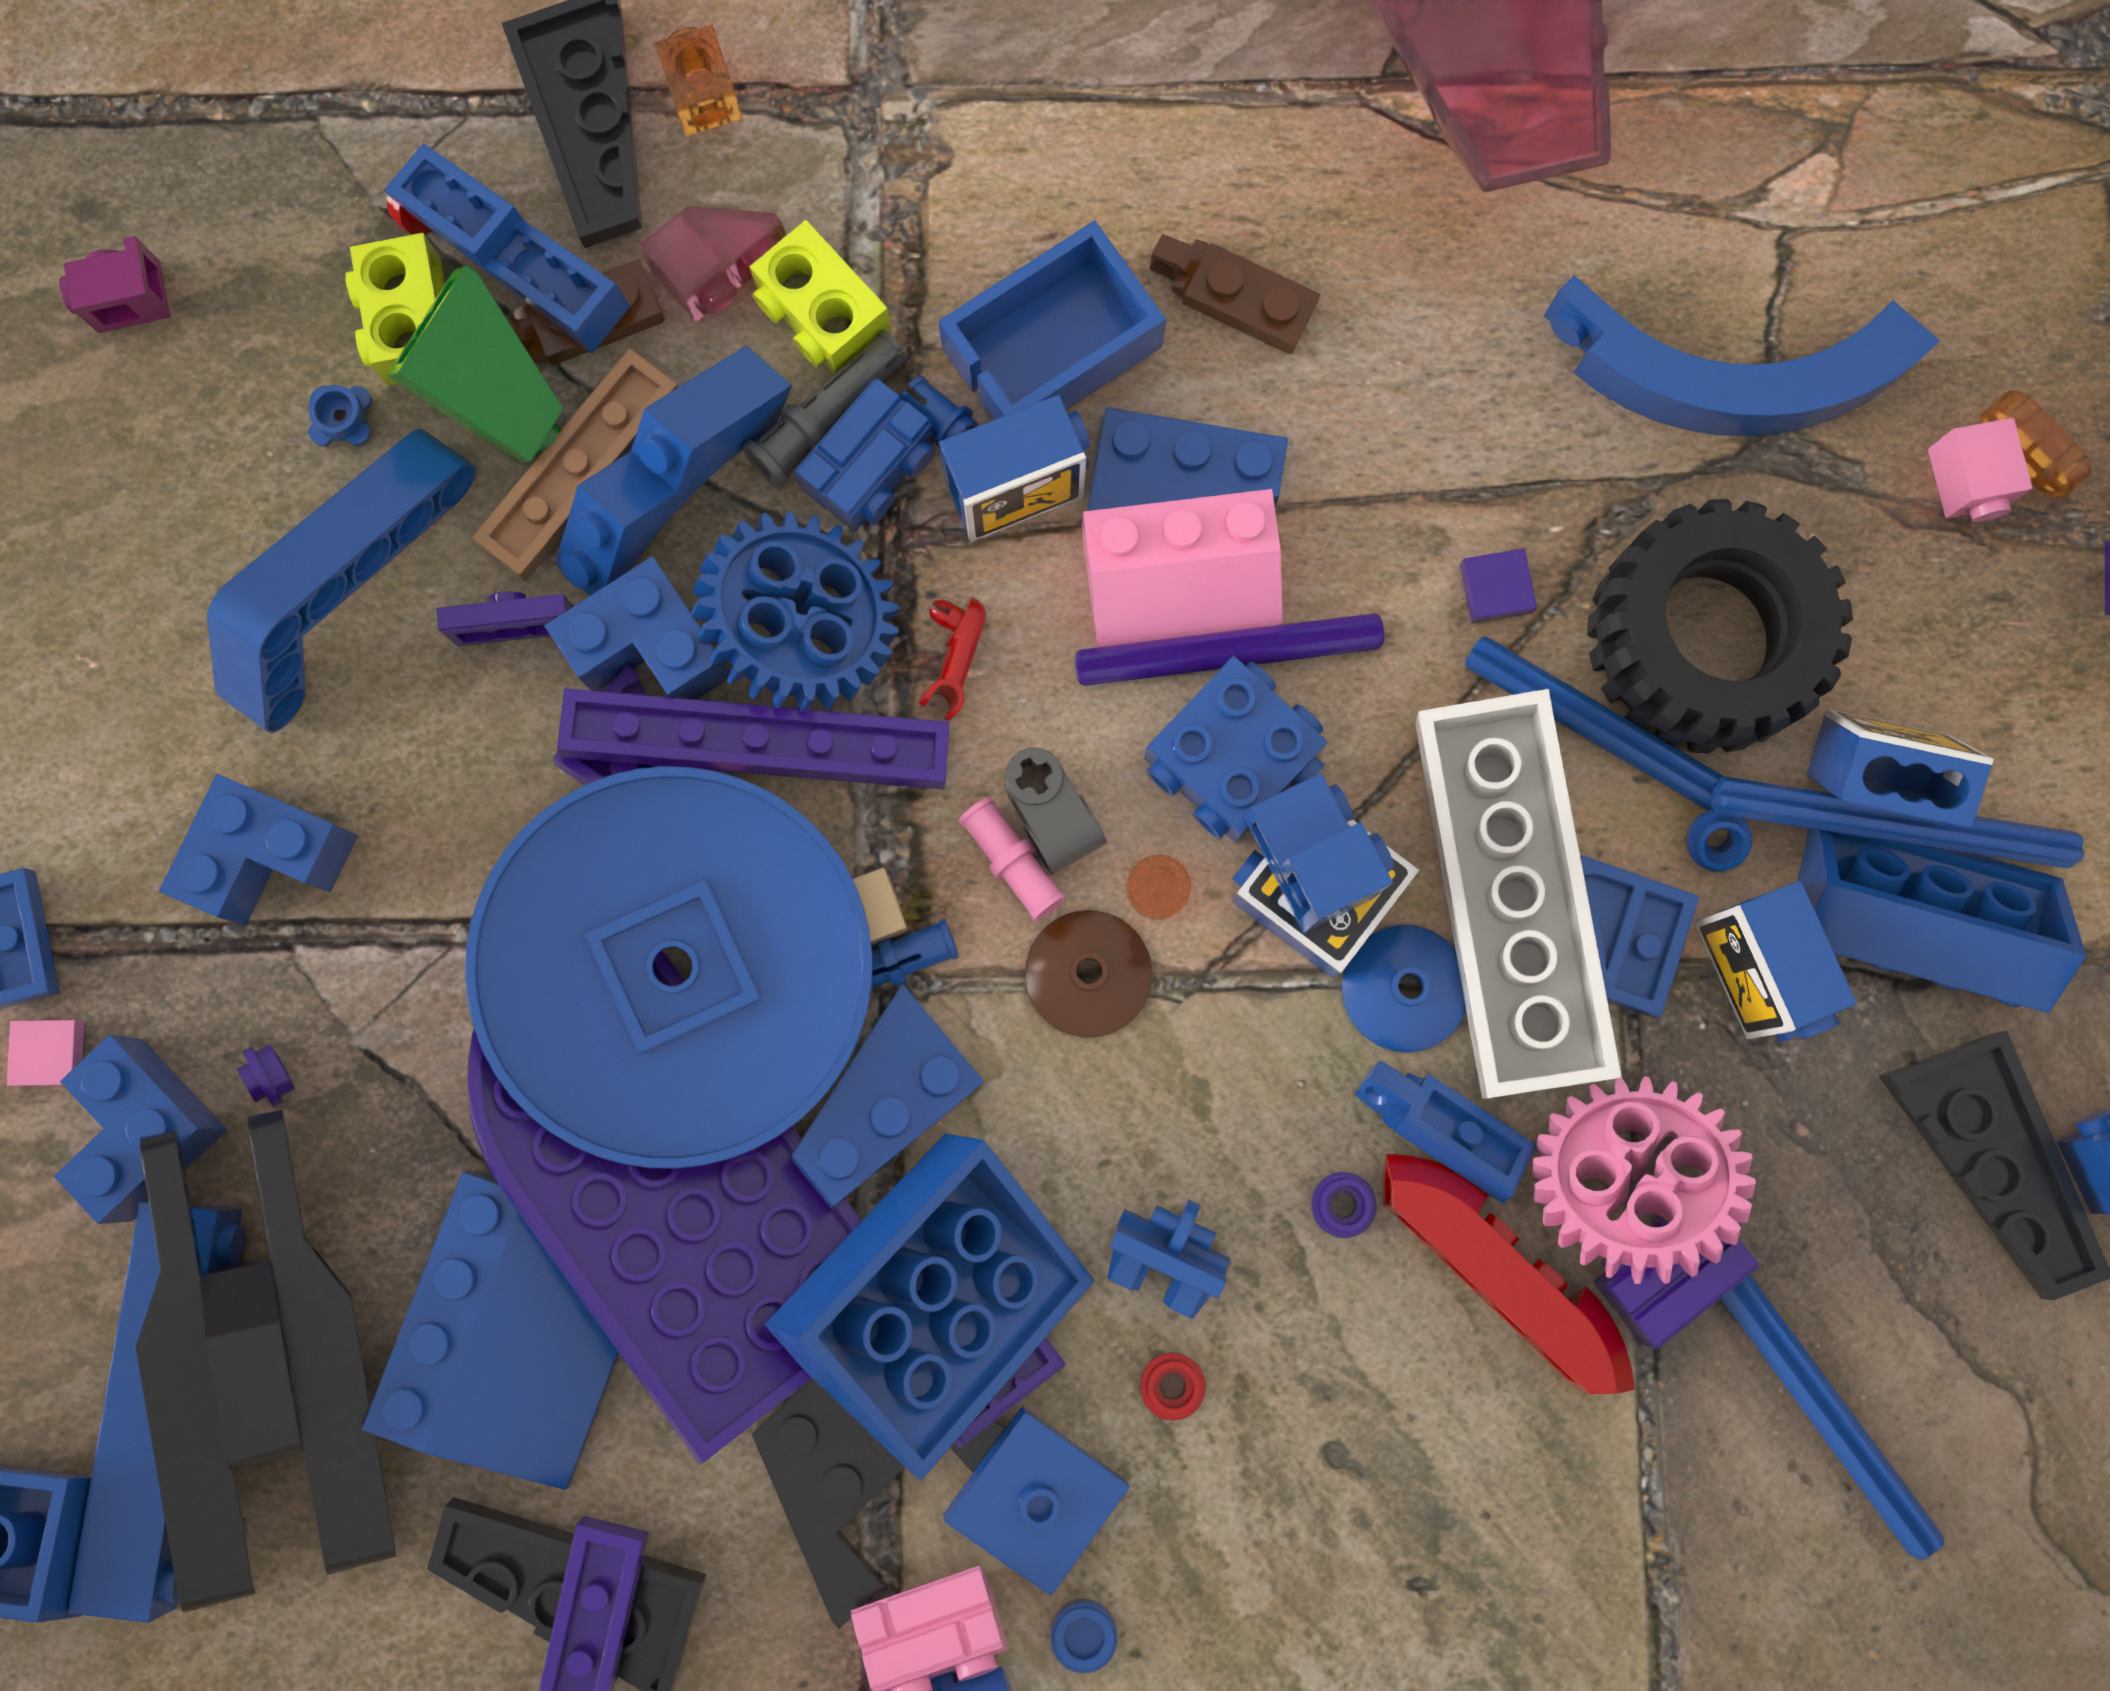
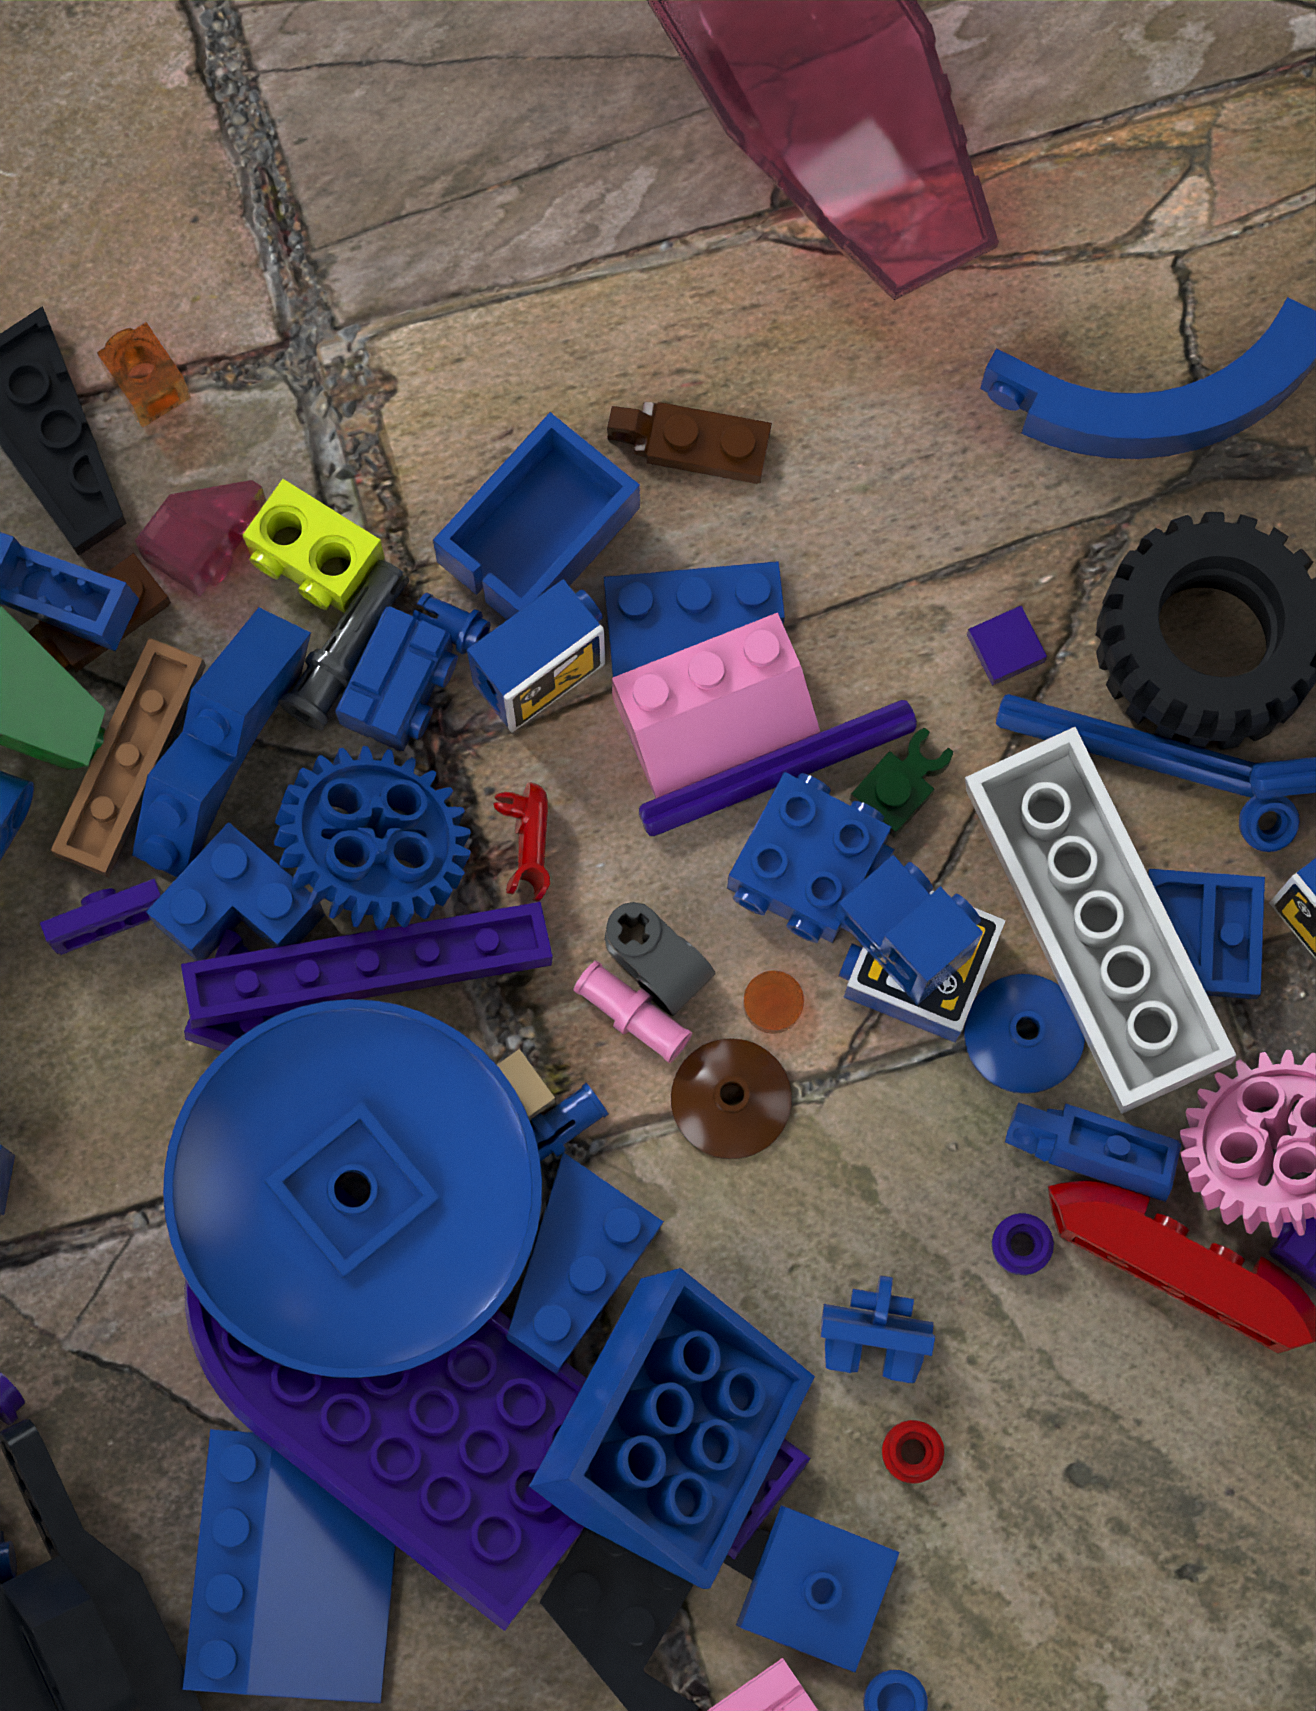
camera: 15 degrees left, 5 degrees down
(1347, 702) = (899, 786): none -> dark green plate

